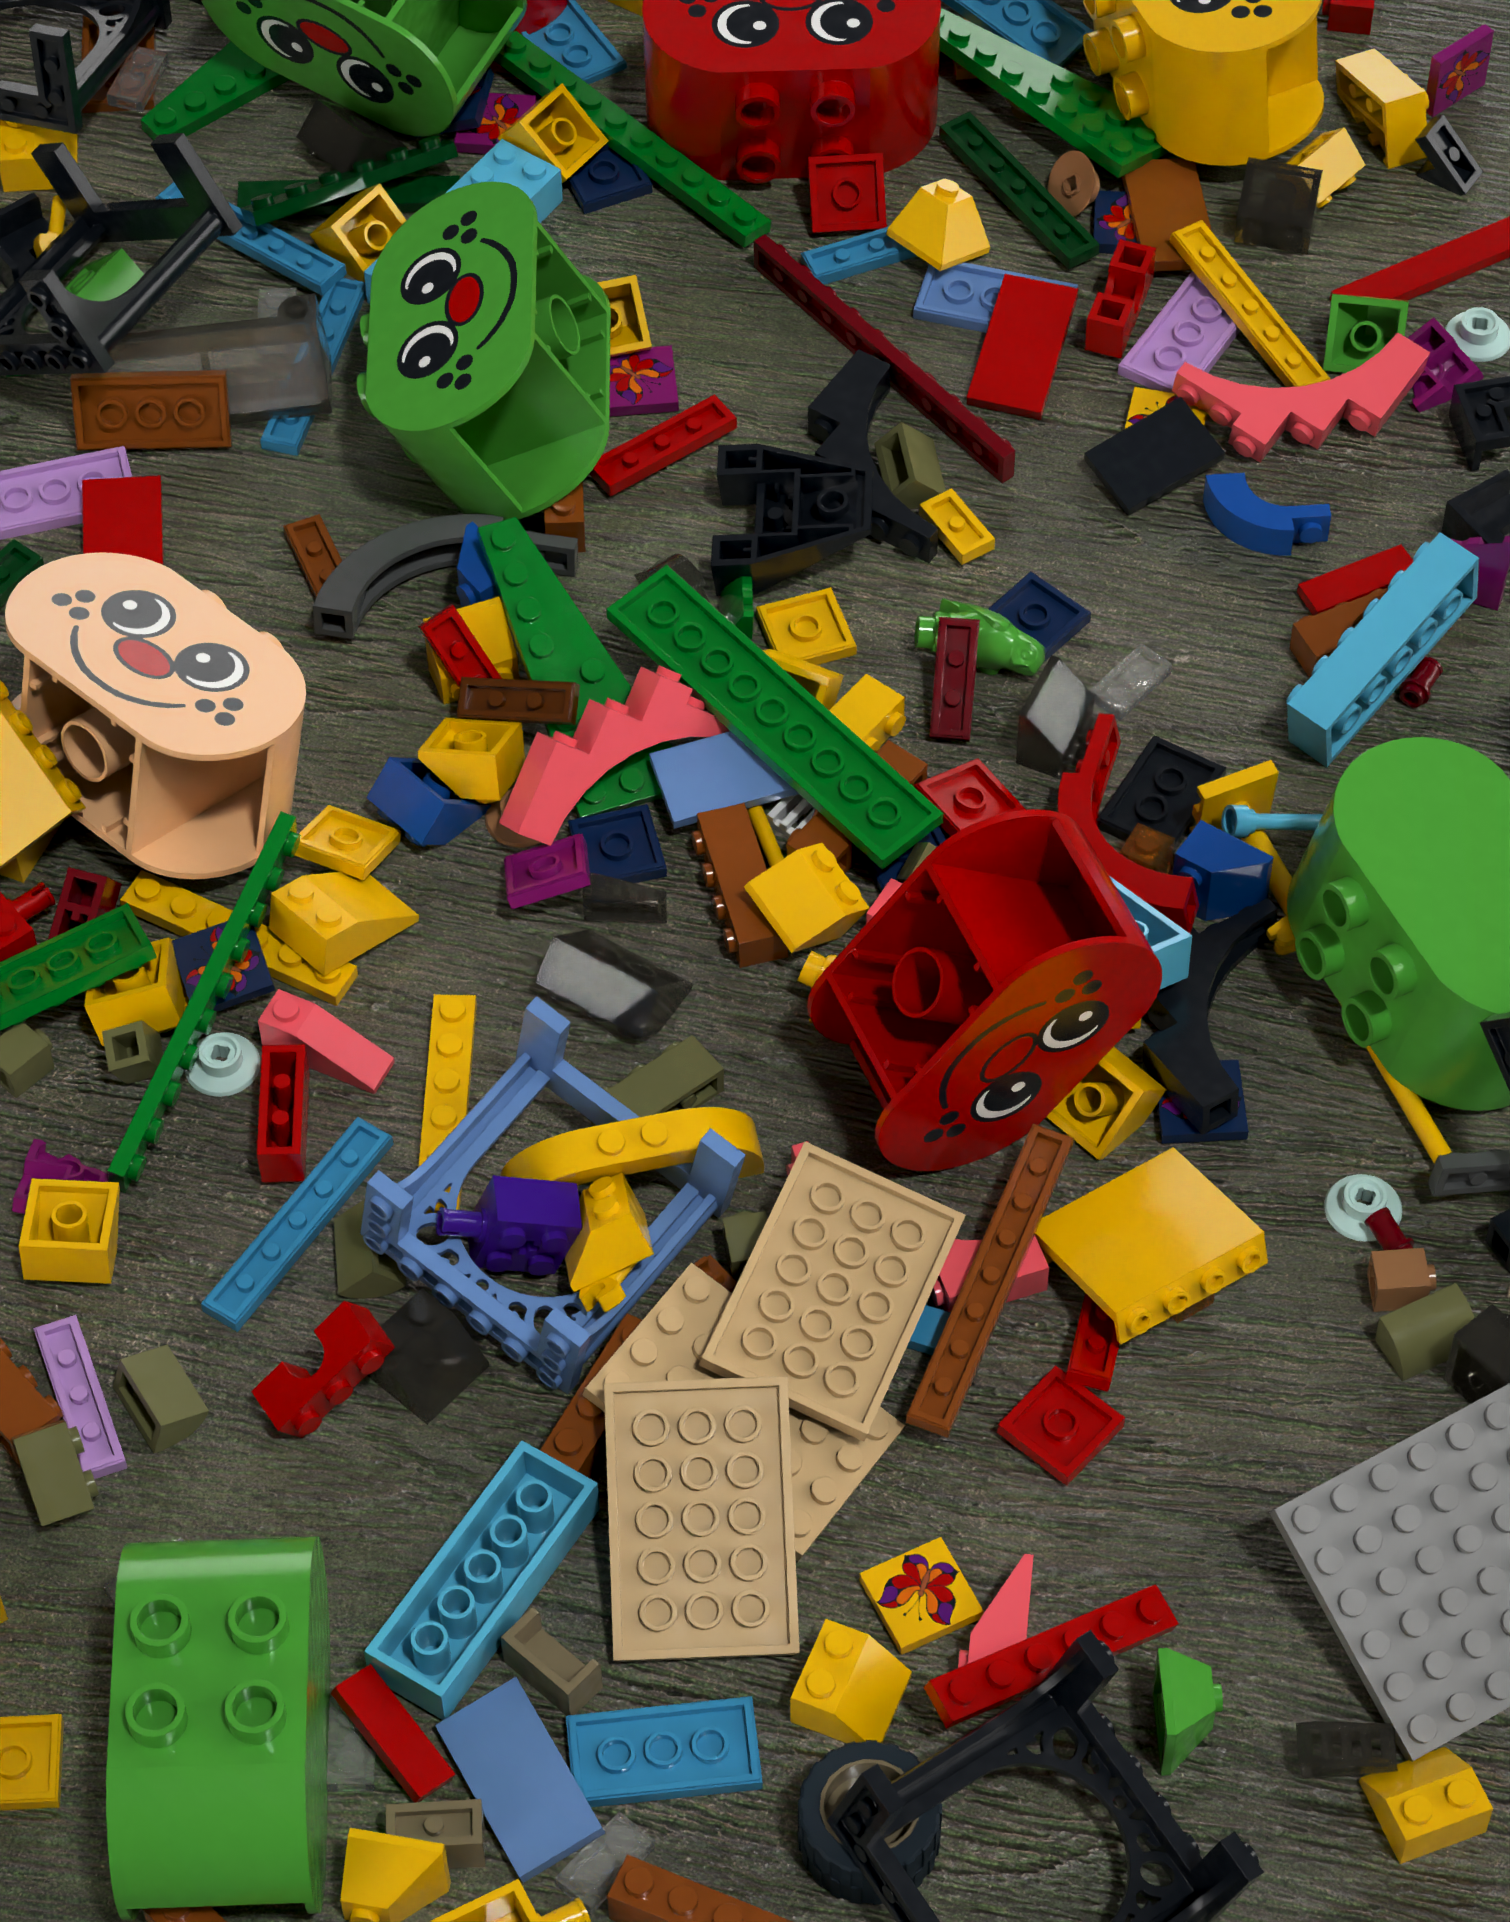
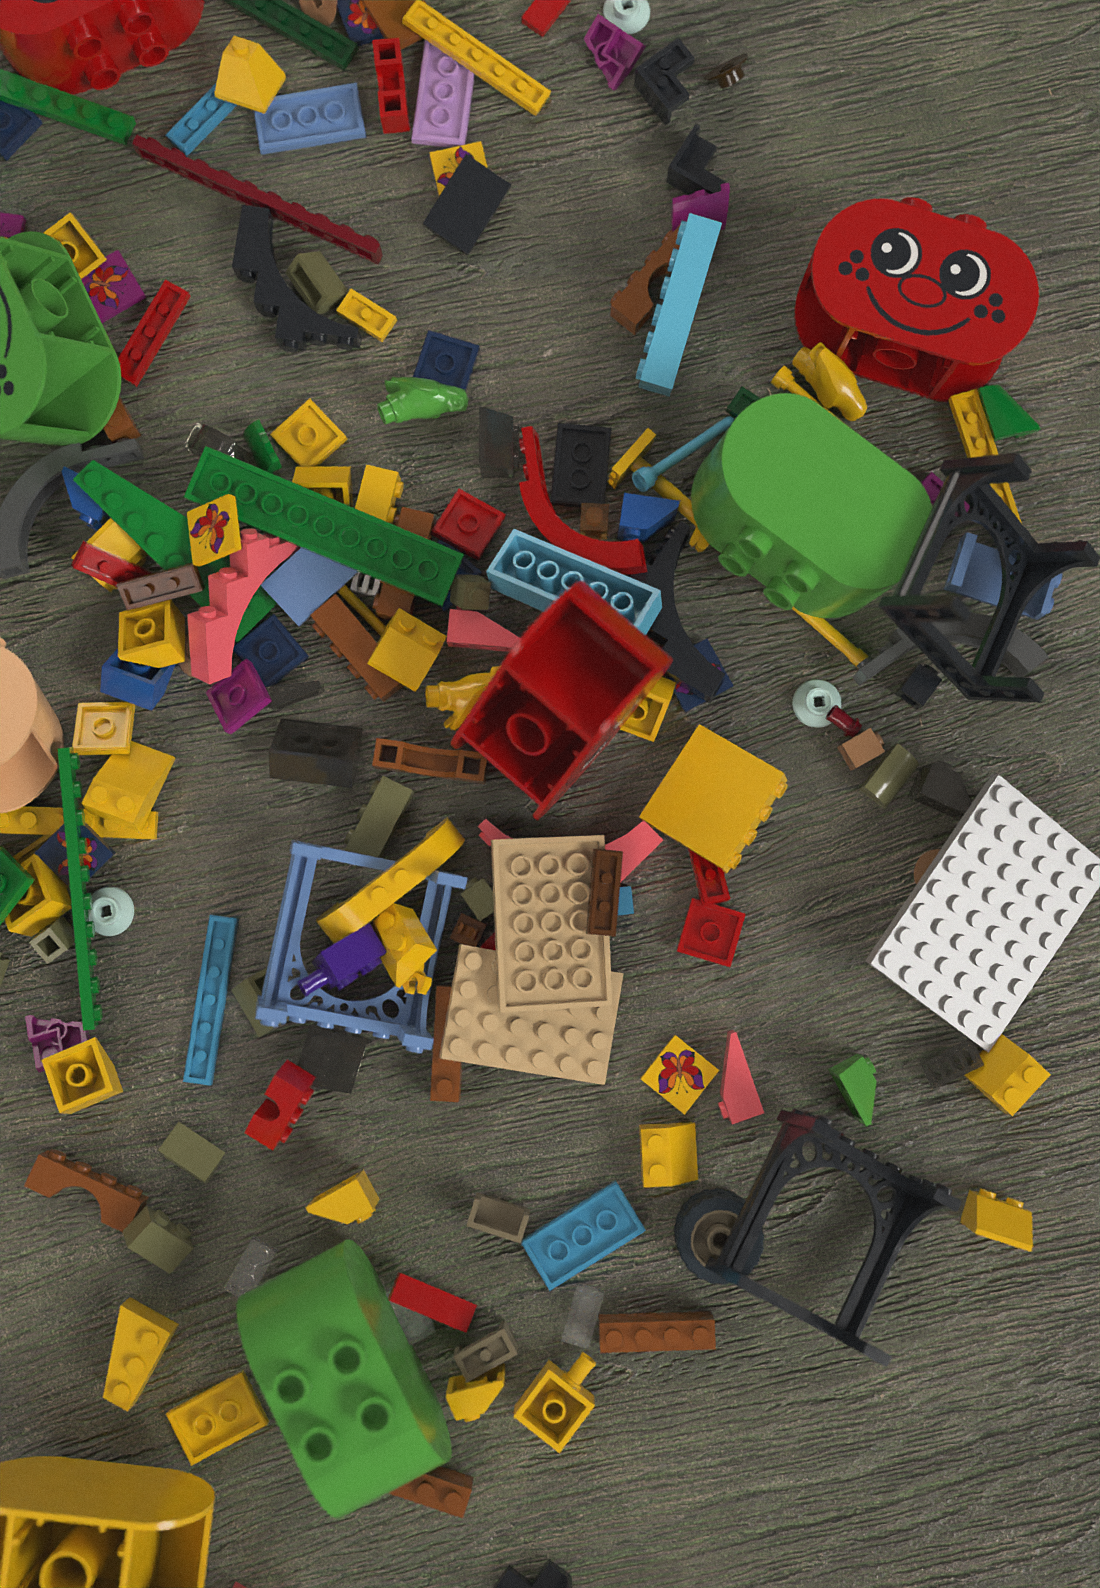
camera: 25 degrees left, 30 degrees up
(80, 1395) = (144, 1171): lavender tile -> none
(283, 1113) = (165, 939): red brick -> none
(329, 1042) = (164, 875): coral slope -> none
(350, 1530) = (346, 1201): none -> yellow slope
(447, 1072) = (250, 866): yellow plate -> none
(483, 1579) = (435, 1189): medium azure brick -> none
(520, 1779) = (514, 1293): medium blue tile -> none
(625, 653) = (214, 530): none -> yellow tile
(701, 1519) = (542, 1100): tan plate -> none
(729, 1029) = (431, 762): none -> dark orange arch
(802, 512) = (271, 353): black wedge -> none
(847, 192) = (173, 73): red plate -> none
(928, 1281) = (604, 892): none -> reddish brown tile
(954, 679) = (420, 440): dark red tile -> none
(989, 1281) = (635, 865): dark orange tile -> none
(1022, 346) = (344, 151): red tile -> none
(1024, 1665) = (773, 1091): red plate -> none
(1131, 681) = (526, 388): clear plate -> none
(1260, 524) = (552, 230): blue arch -> none
(1310, 411) = (550, 128): coral arch -> none
(1353, 580) = (633, 246): red tile -> none
(1361, 329) = (560, 45): bright green slope -> none
(1416, 689) = (702, 314): dark red pin -> none

